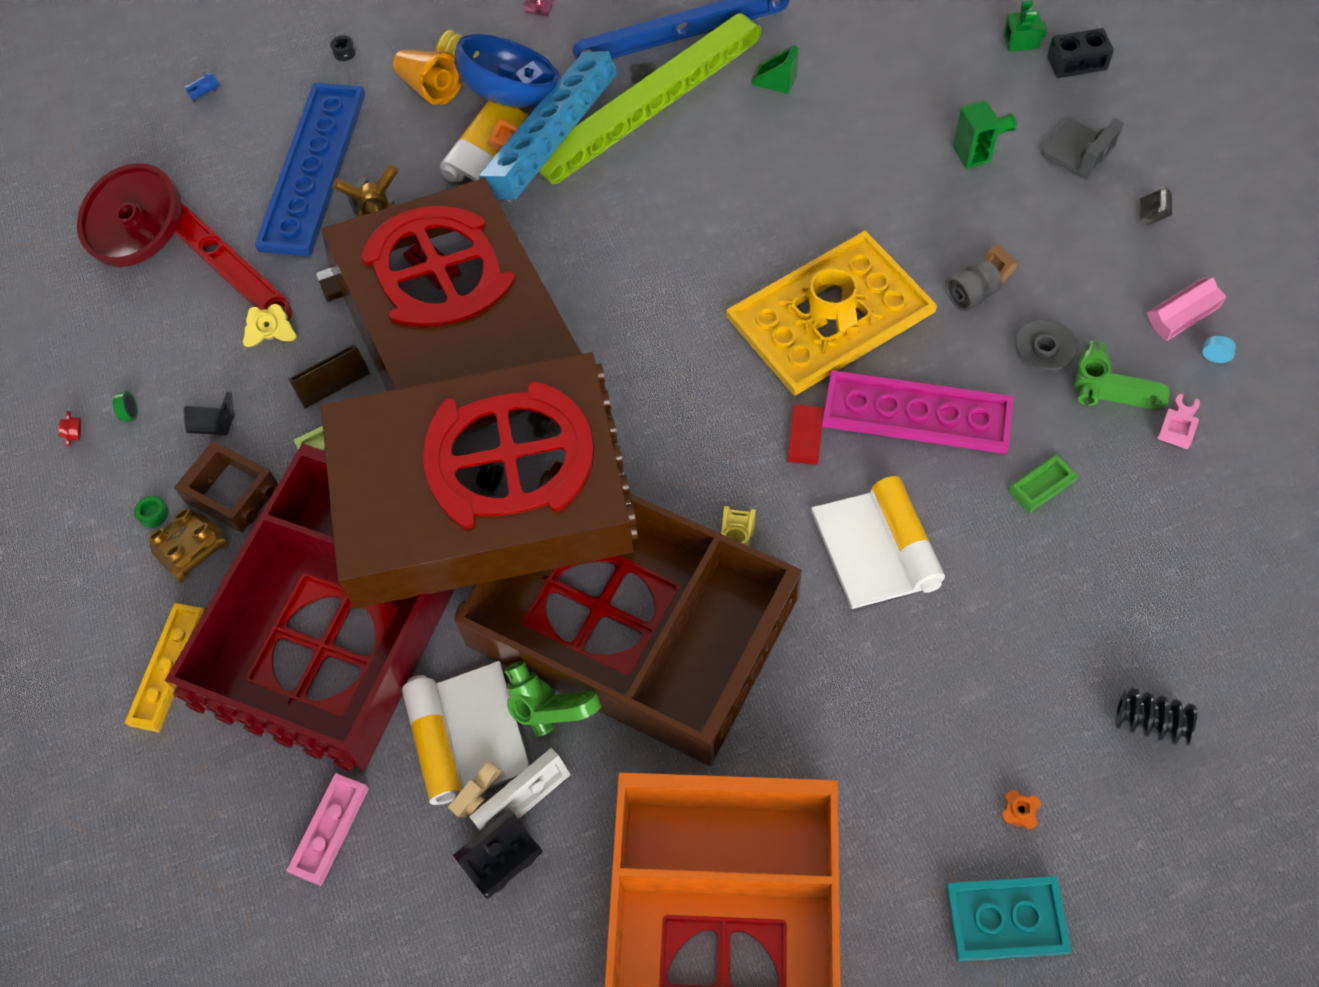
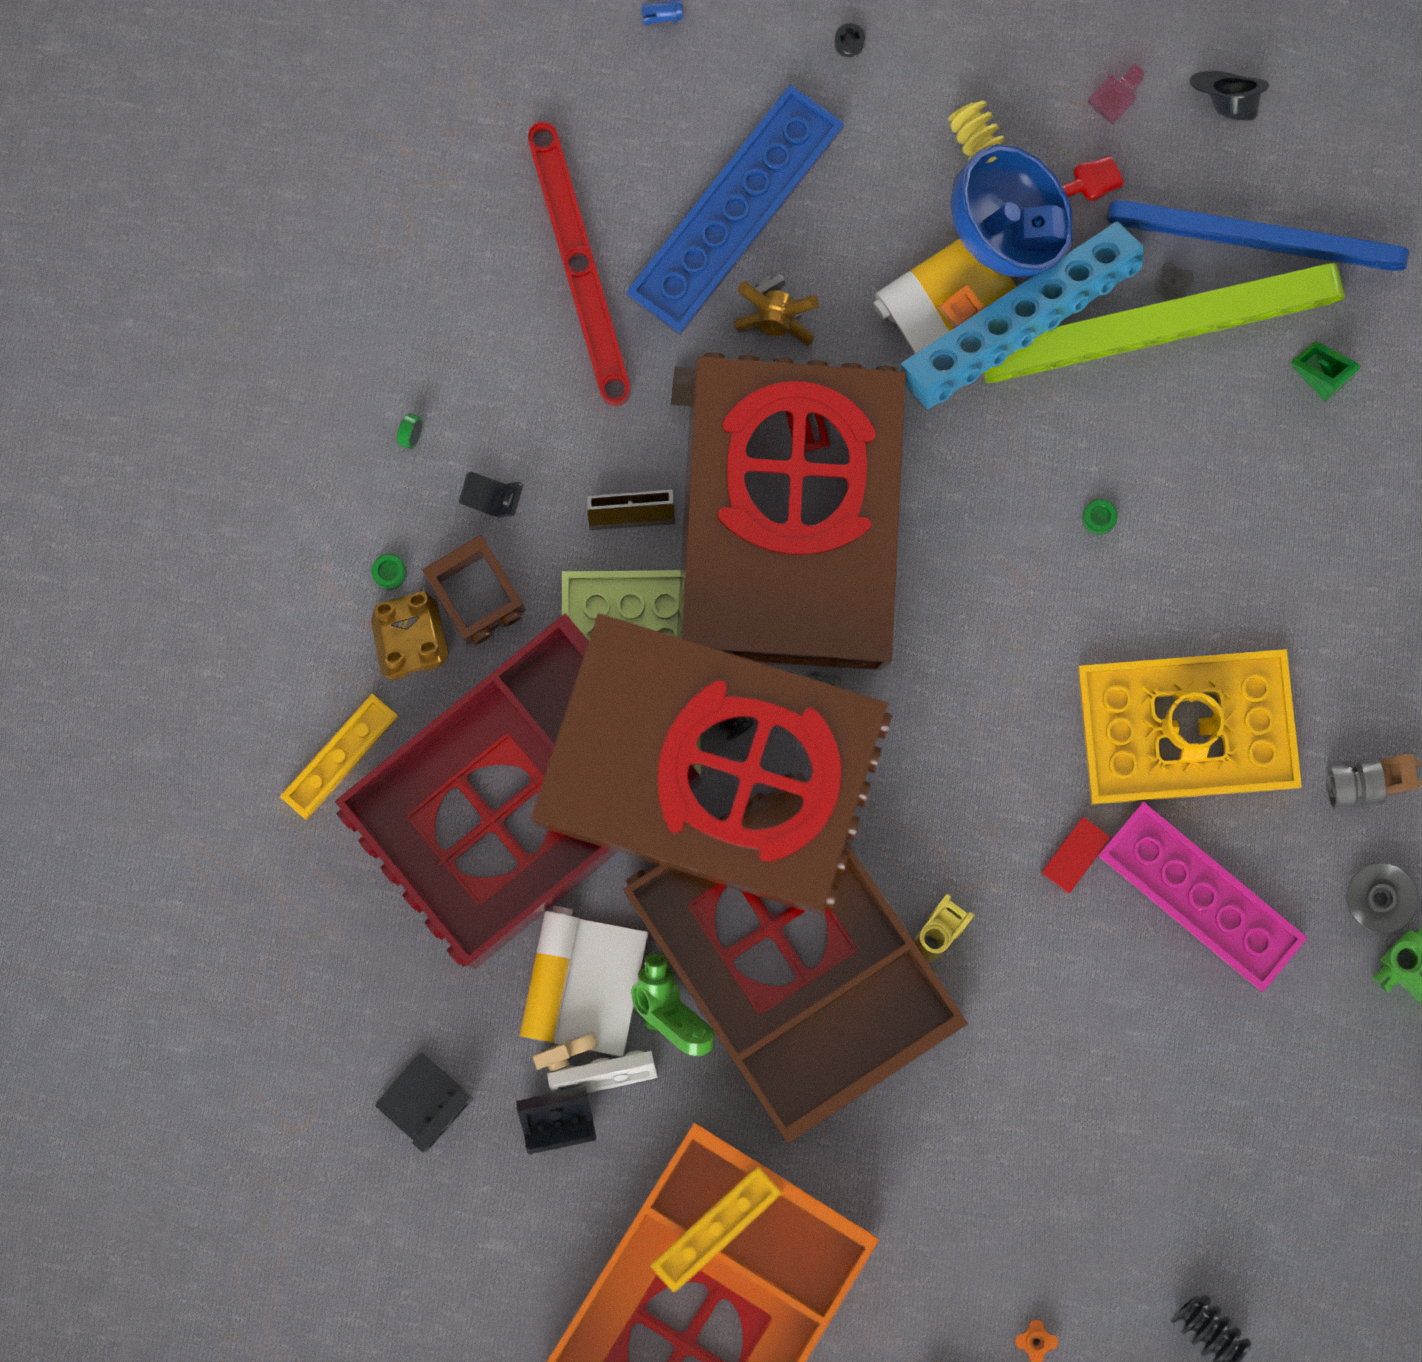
camera: 30 degrees right, 20 degrees up
(70, 428) = (345, 427): red plate -> none
(129, 215) = (508, 175): dark red dish -> none
(278, 326) = (605, 418): light yellow animal -> none
(327, 829) = (419, 1008): bright pink plate -> none
(371, 908) = (424, 1102): none -> black bracket
(429, 74) = (924, 148): light orange cone -> none
(555, 42) = (1095, 179): none -> red piece
(681, 222) = (1099, 516): none -> green tile
(689, 852) = (715, 1229): none -> yellow tile
(878, 544) = (1070, 1016): white door -> none
(1042, 483) = (1275, 1044): bright green tile -> none

